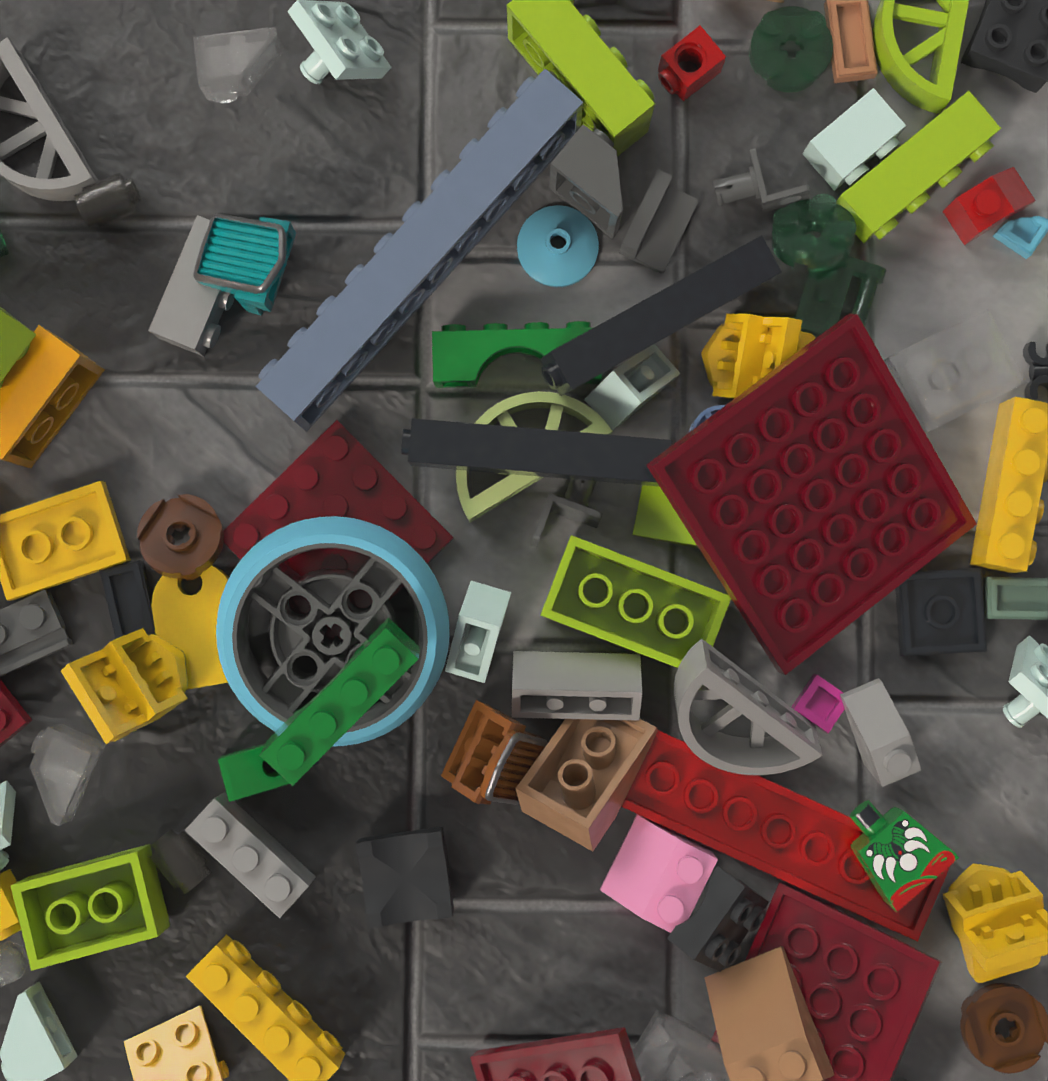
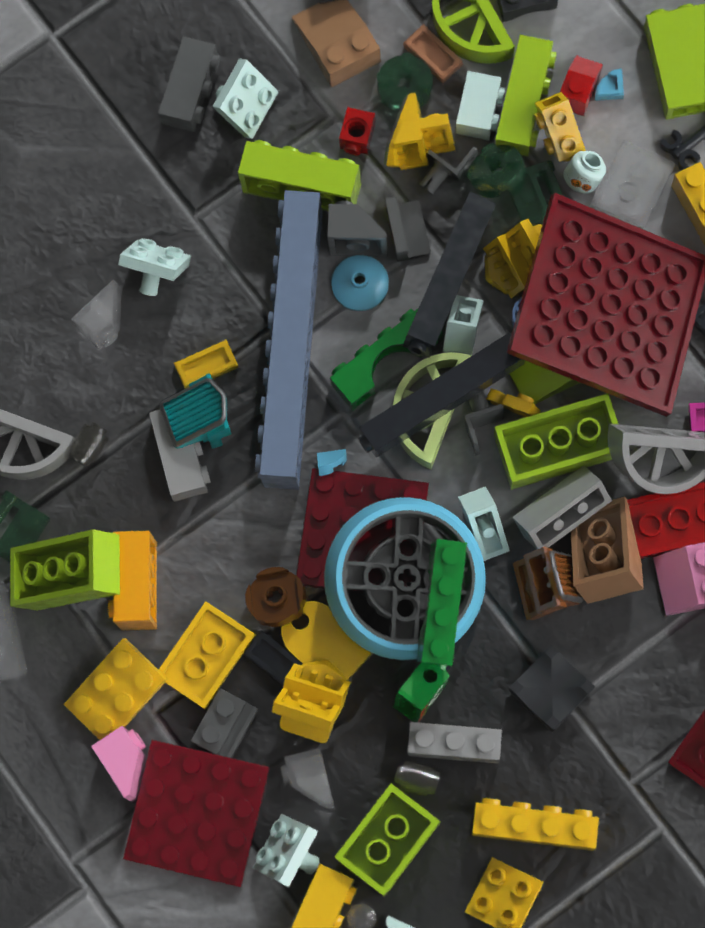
camera: 30 degrees left, 10 degrees down
(312, 208) = (213, 360): none -> yellow tile
(362, 426) = (329, 460): none -> medium azure tile
(624, 529) = (521, 405): none -> yellow plate
(752, 119) = (416, 135): none -> yellow piece
(913, 313) = (584, 172): none -> light aqua head
(926, 239) = (560, 127): none -> yellow brick

